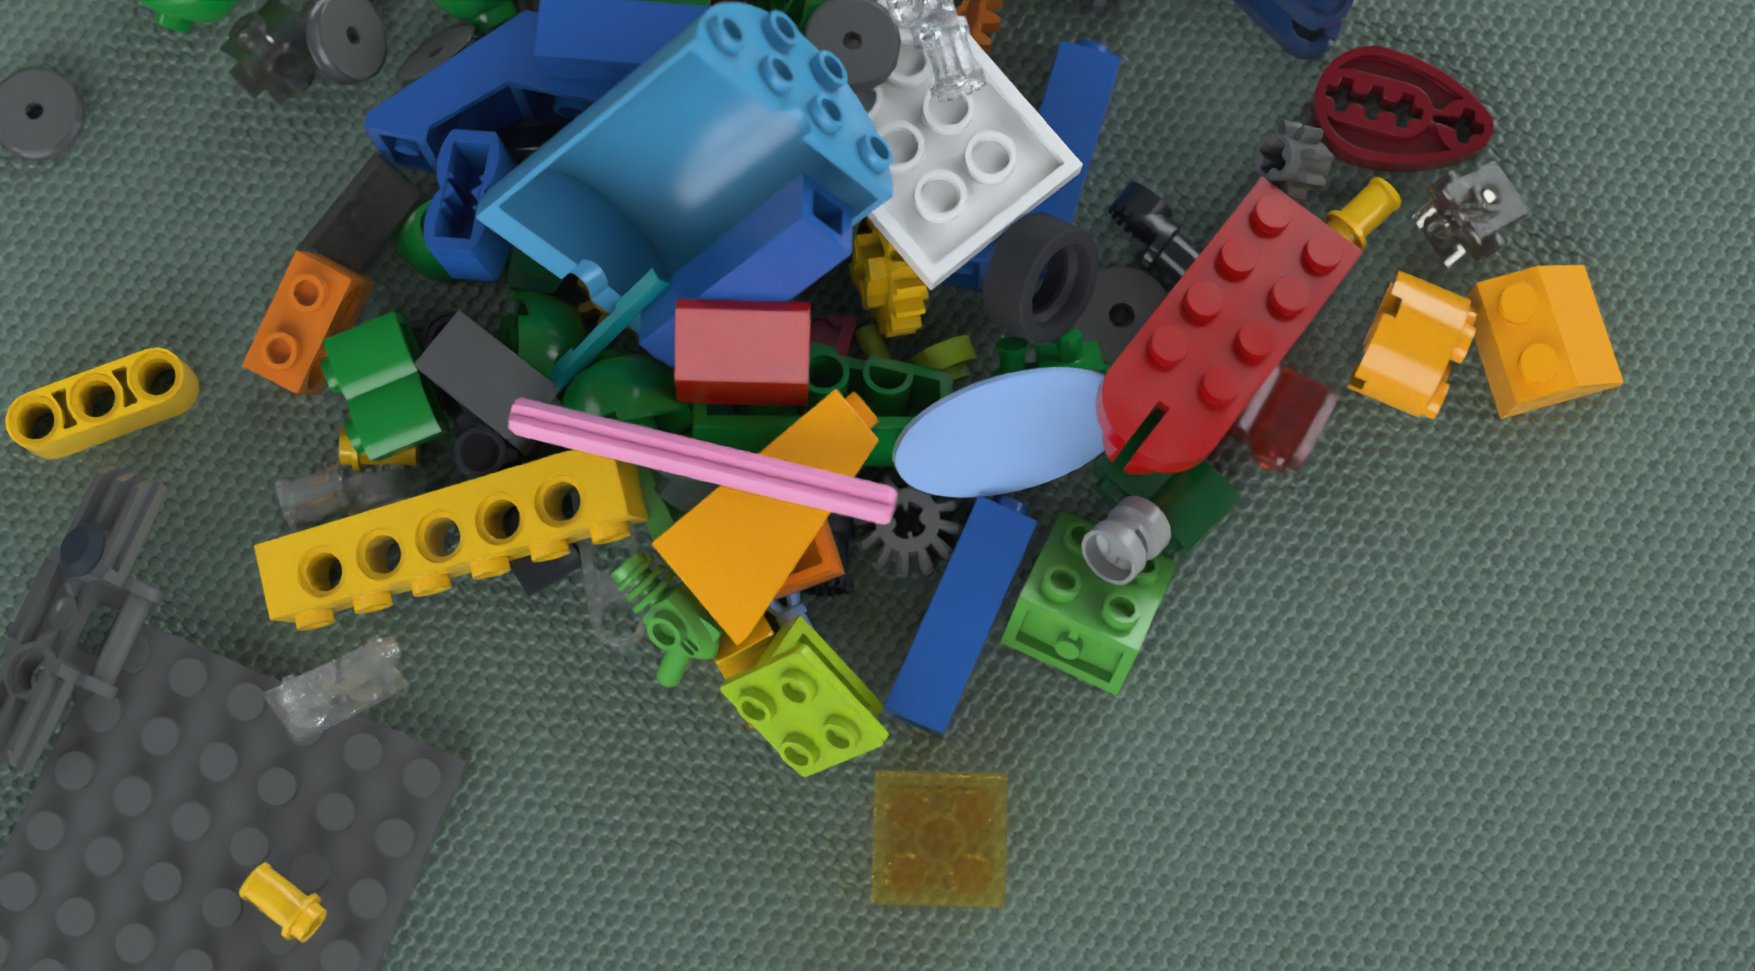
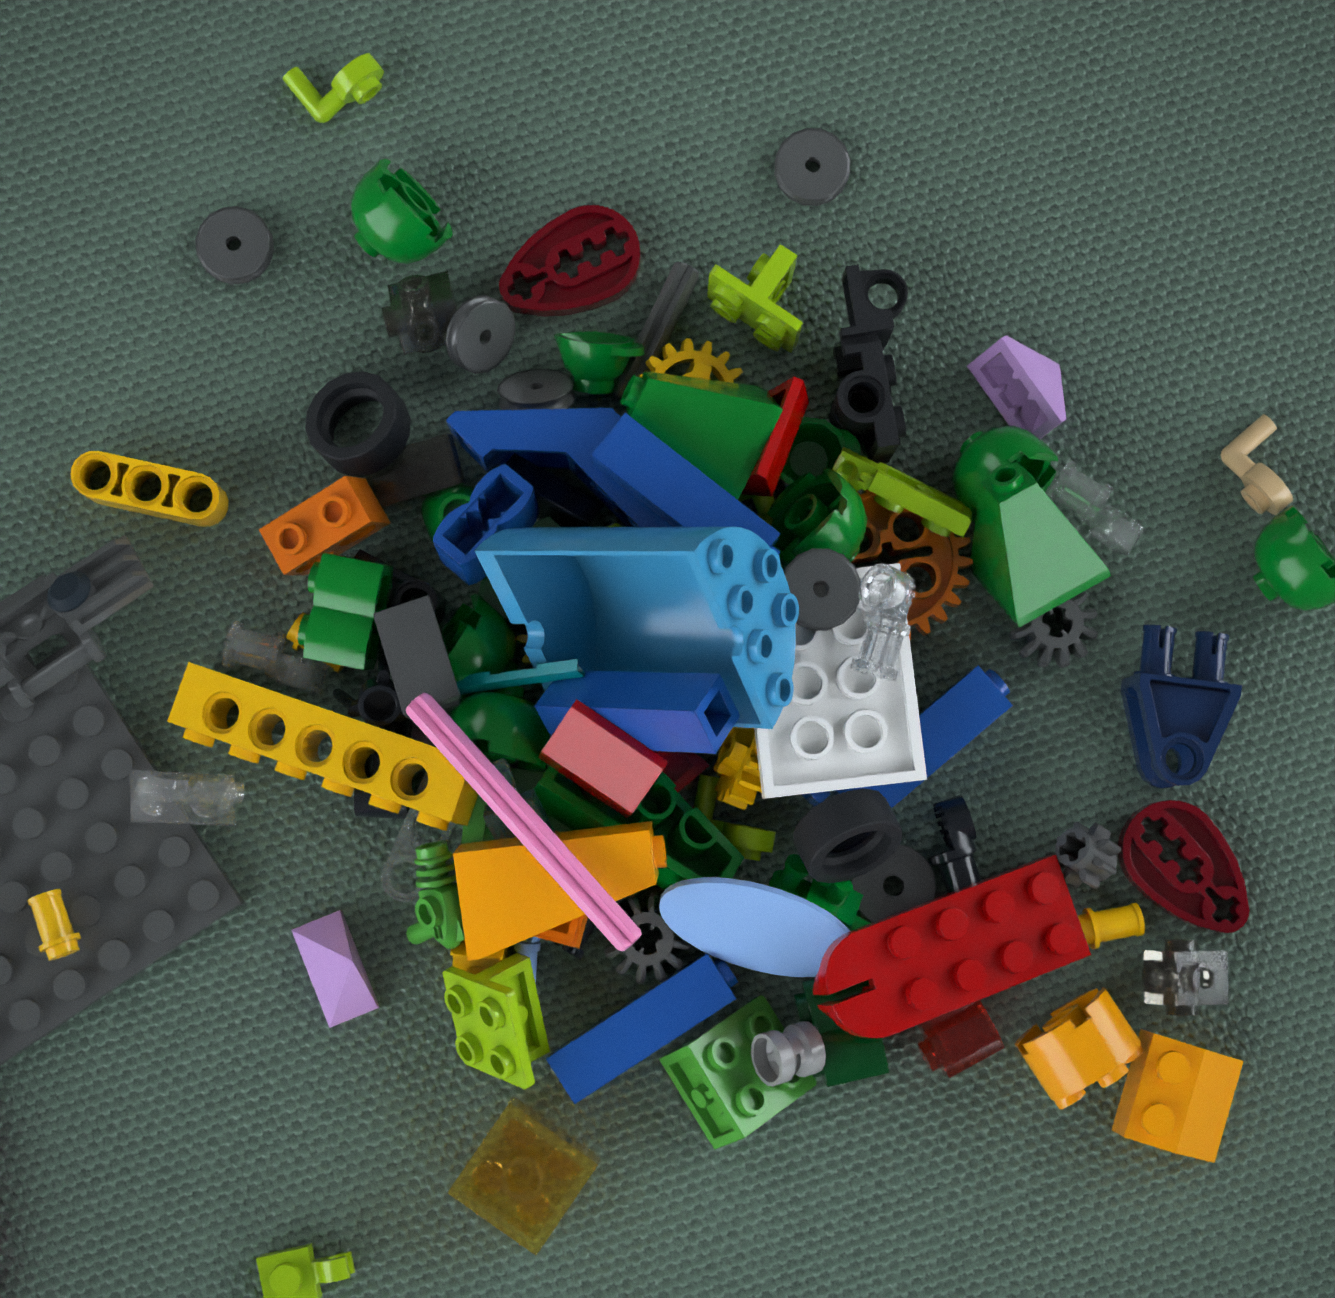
camera: 25 degrees right, 5 degrees up
(245, 185) = (335, 401): none -> black tyre
(608, 767) = (335, 968): none -> lavender slope

